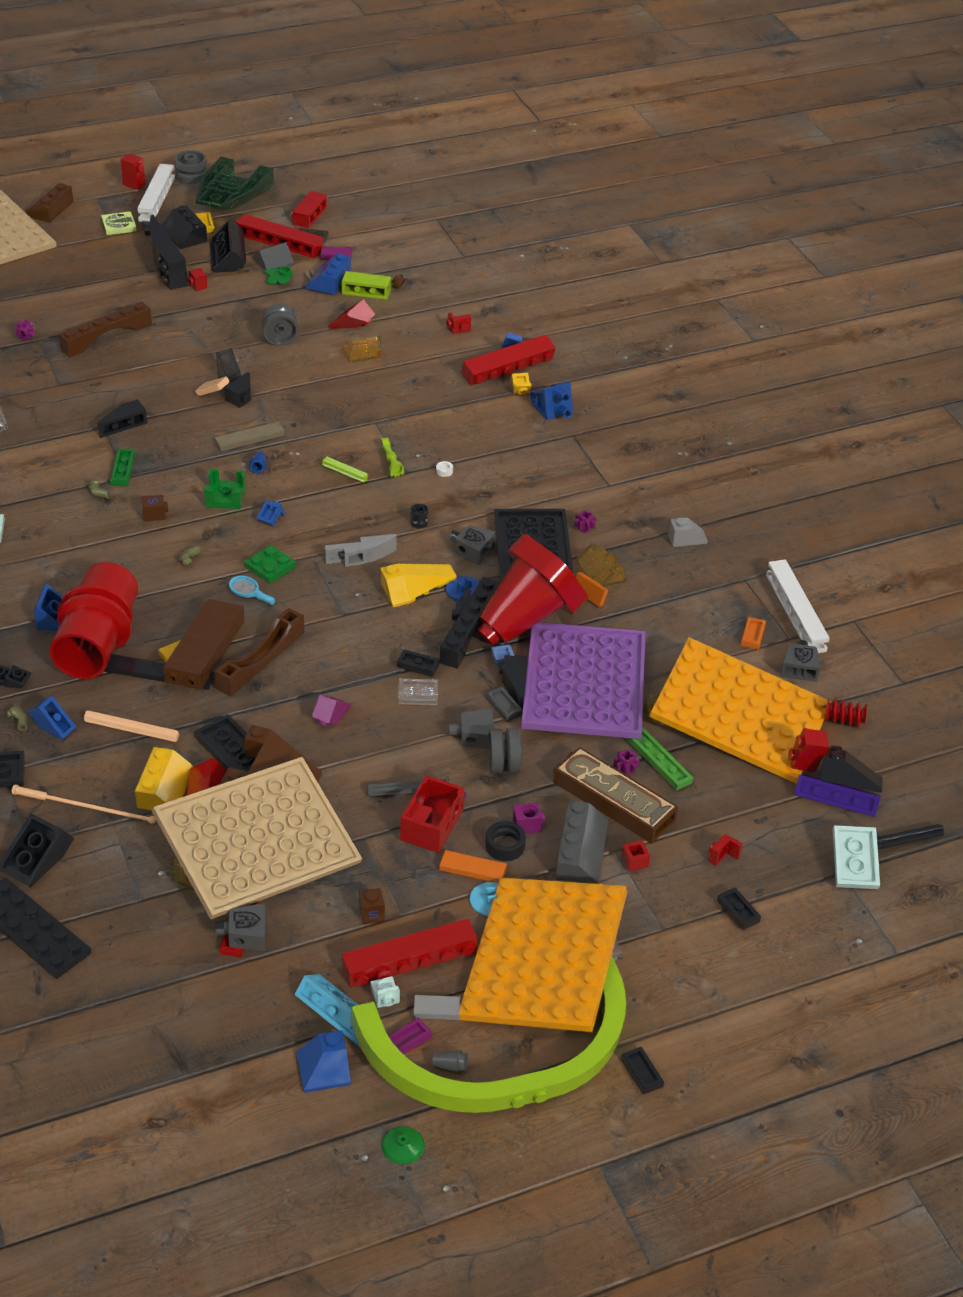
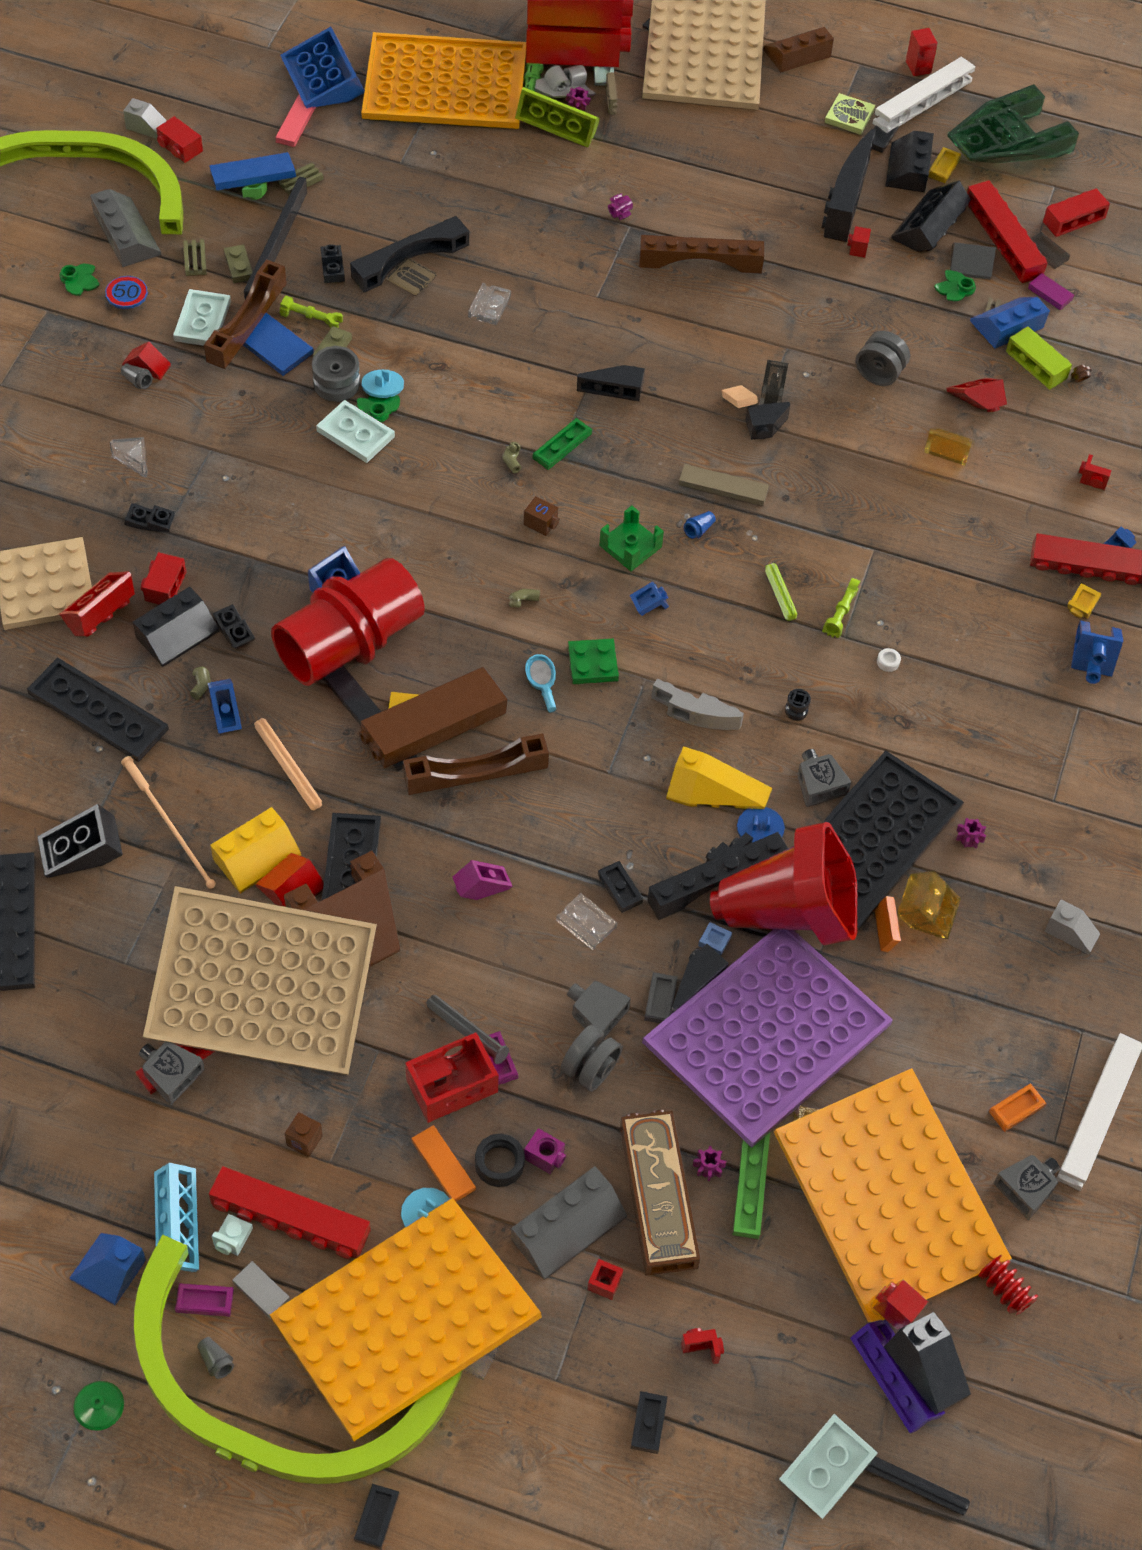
camera: 40 degrees right, 15 degrees up
(190, 166) = (995, 76): dark grey wheel -> none

